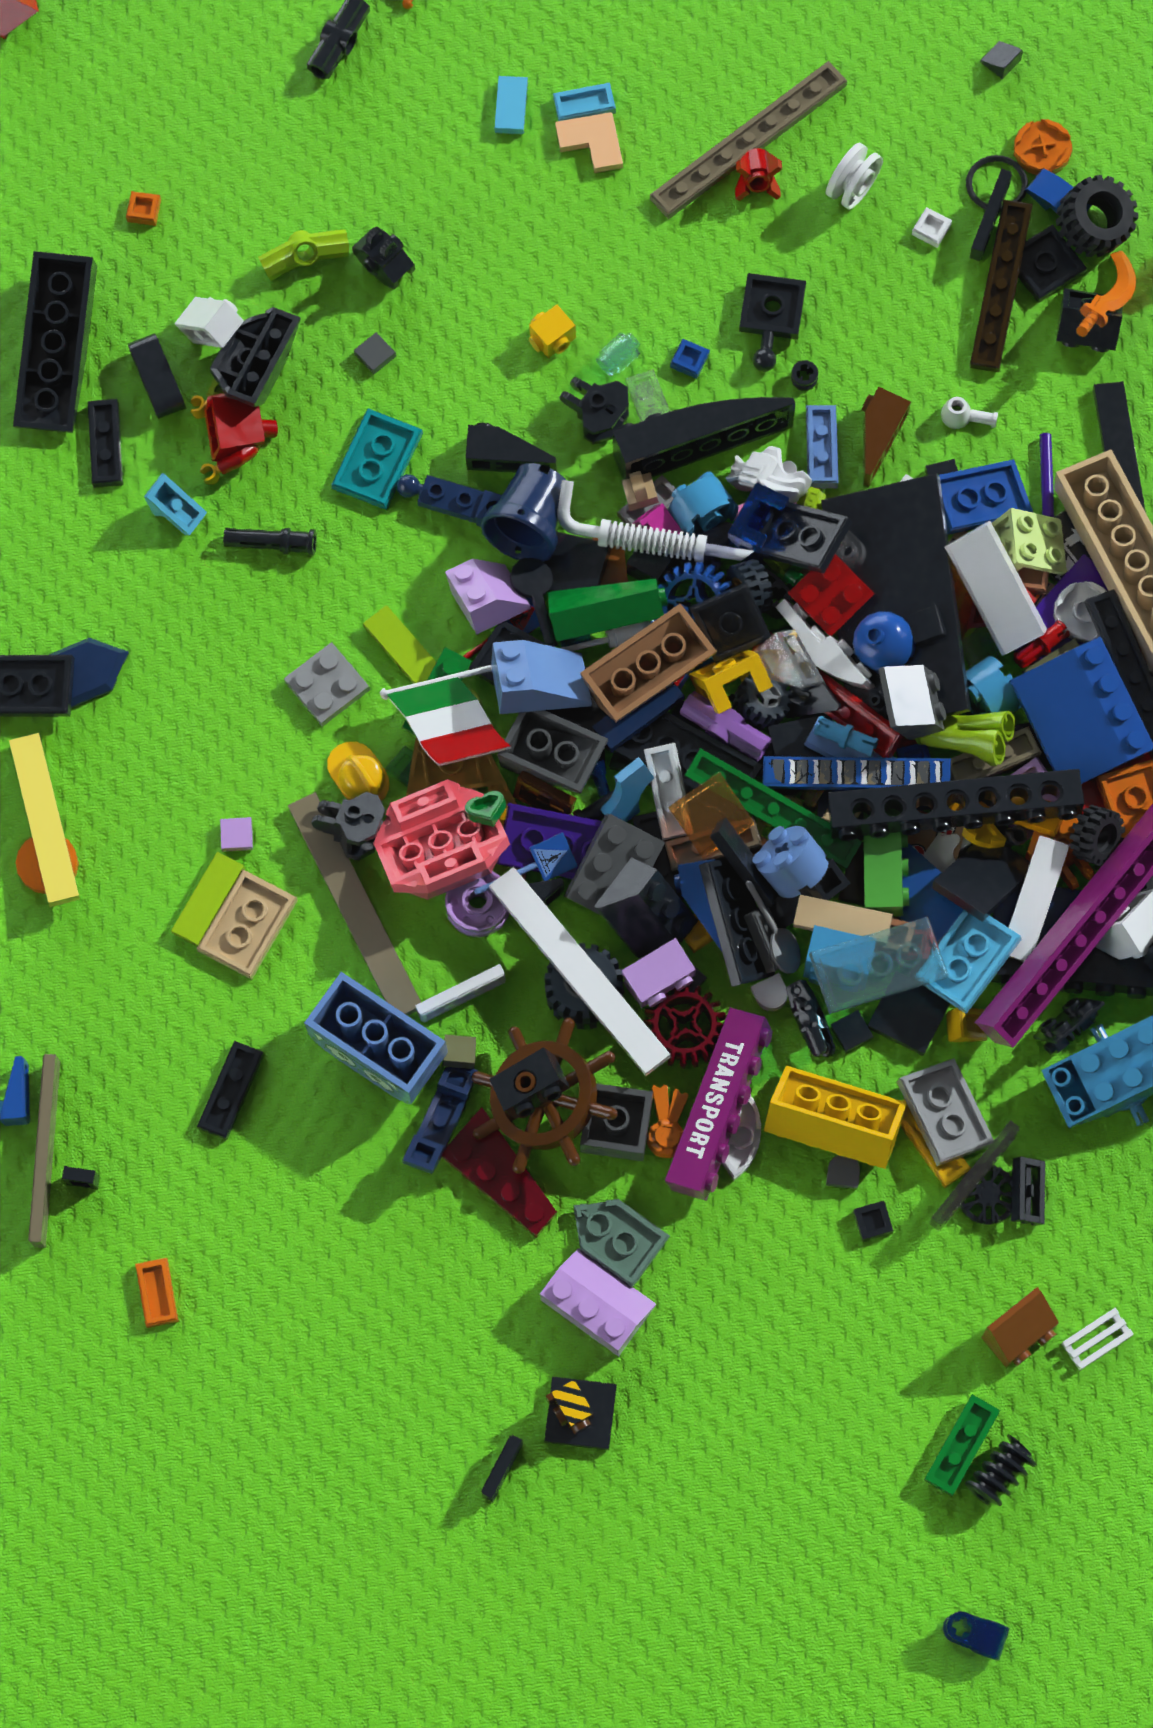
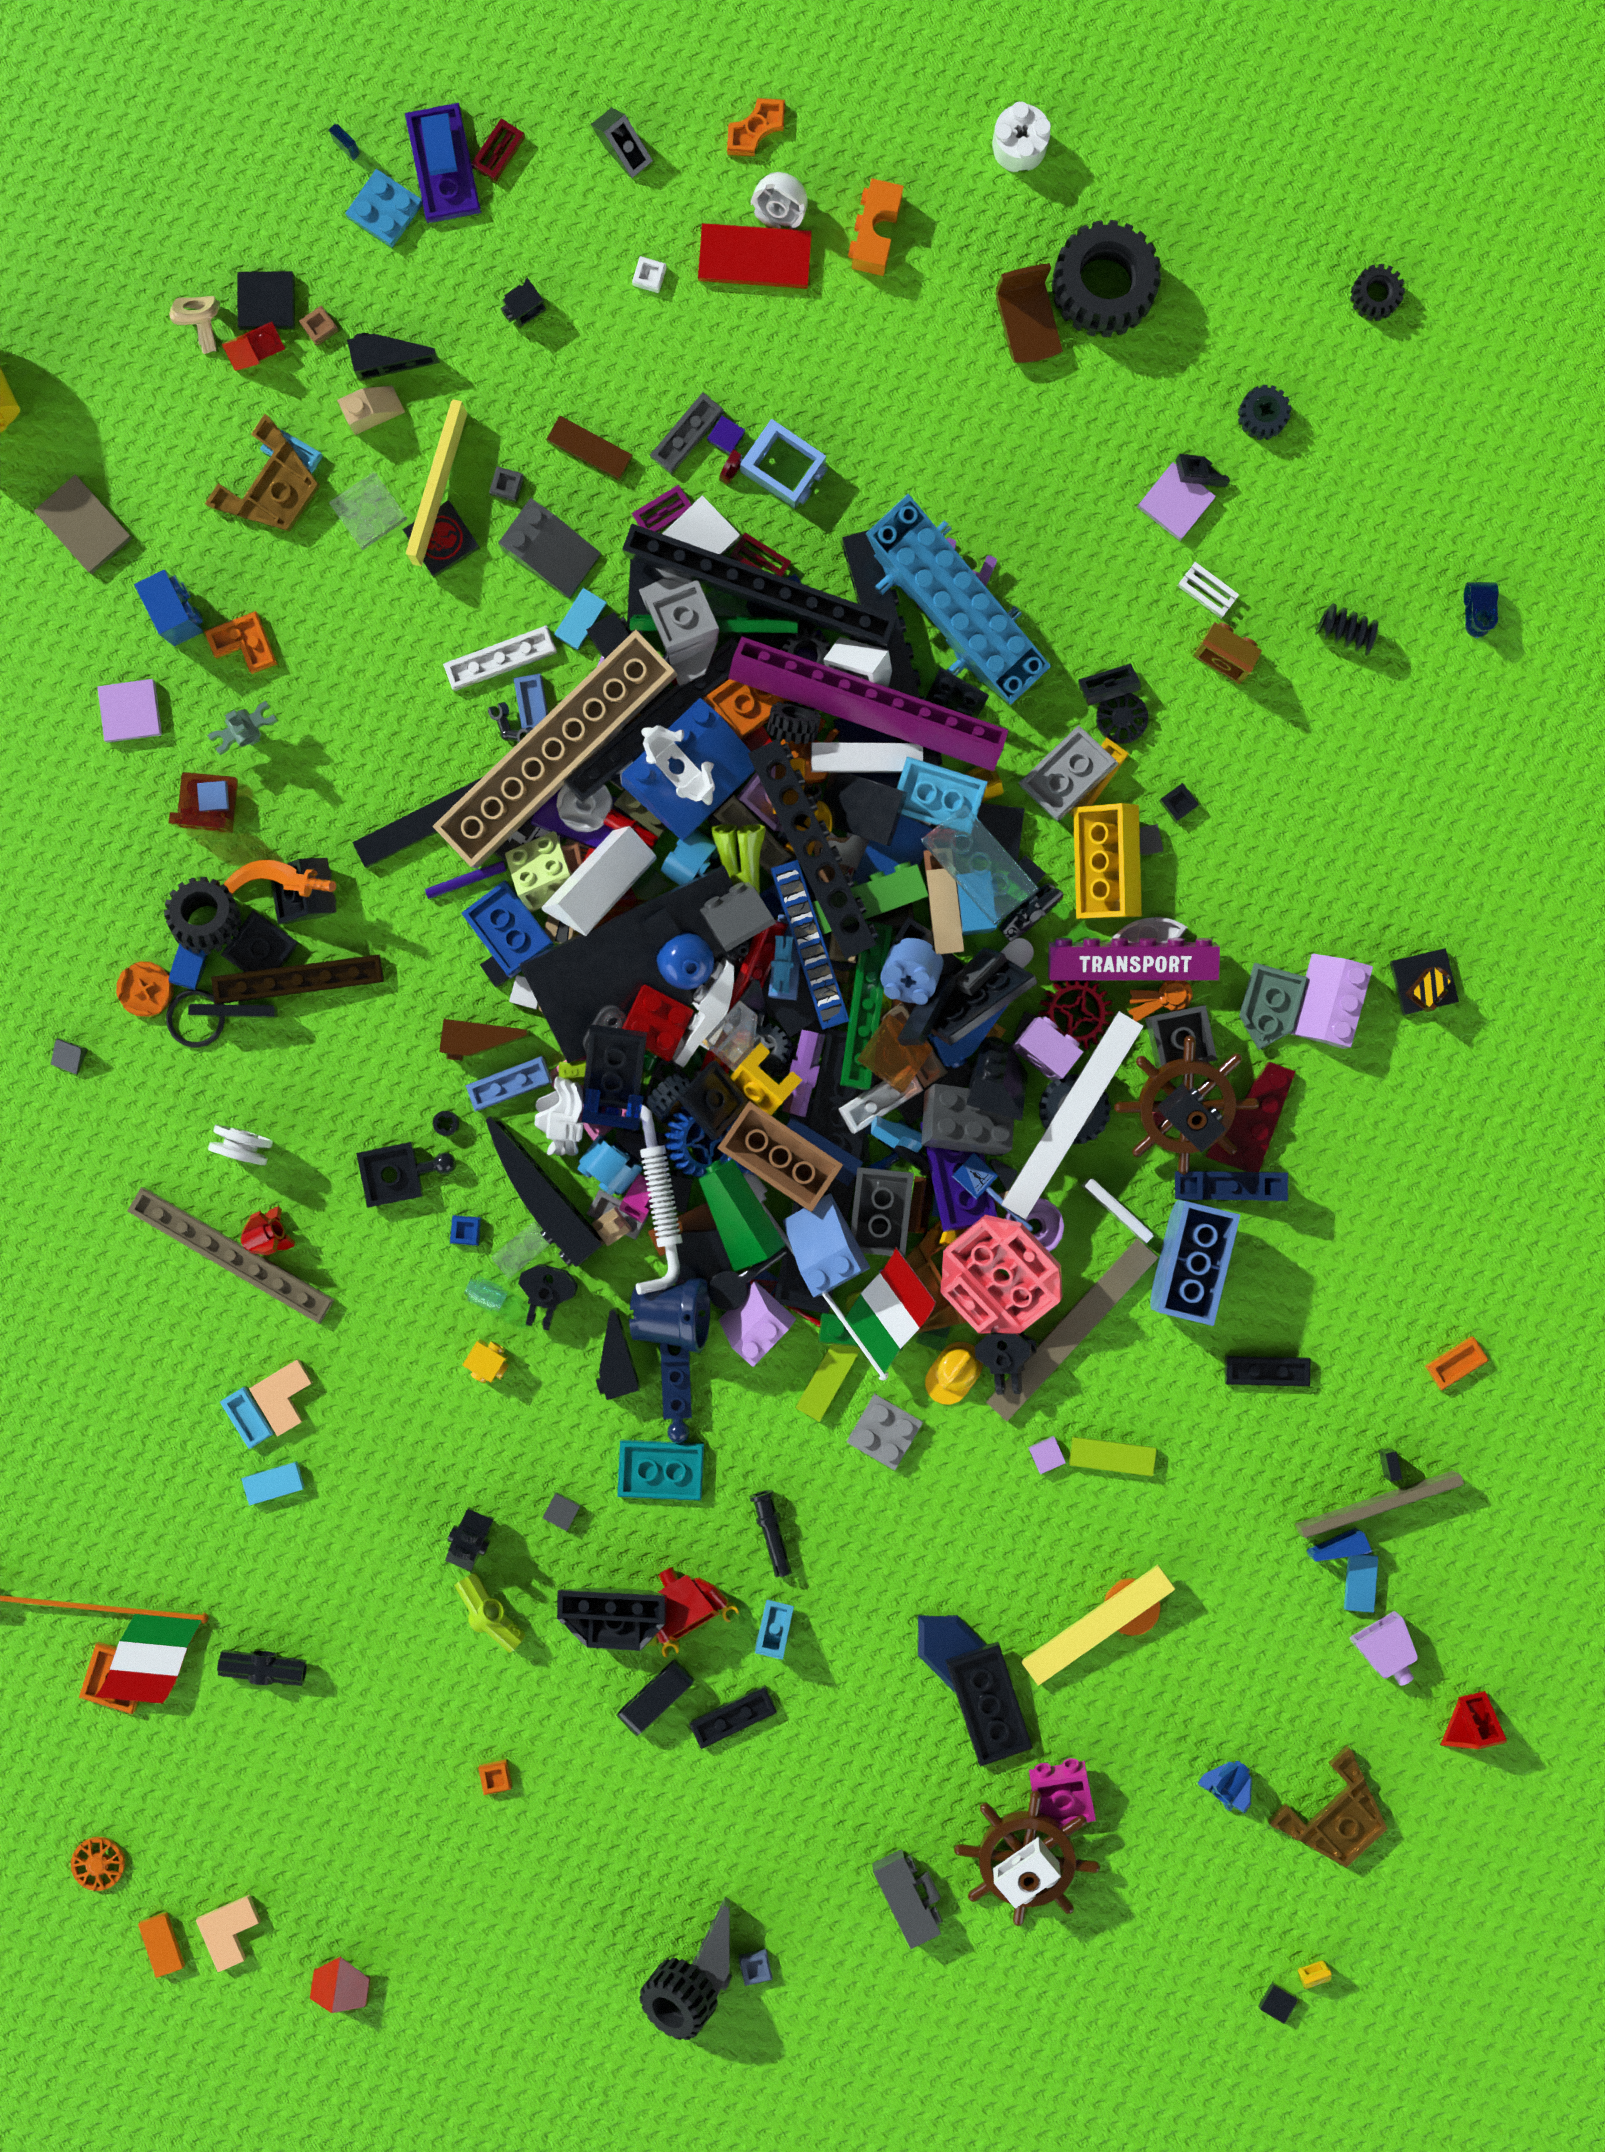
camera: 120 degrees left, 15 degrees up
(55, 341) = (658, 1801): black slope -> none
(209, 321) = (590, 1670): white brick -> none
(247, 924) = (1121, 1414): tan tile -> none
(460, 1052) = (1166, 1192): olive tile -> none
(486, 809) = (960, 1247): green tile -> none
(502, 1468) = (1494, 1027): black tile -> none
(783, 944) = (975, 955): light grey piece -> none
(931, 227) = (260, 1061): white tile -> none
(961, 418) = (432, 967): white bar -> none
(962, 1445) = (1336, 668): green plate -> none
(974, 1176) = (1118, 729): clear smoke tile -> none
(1065, 702) = (692, 782): none -> white piece

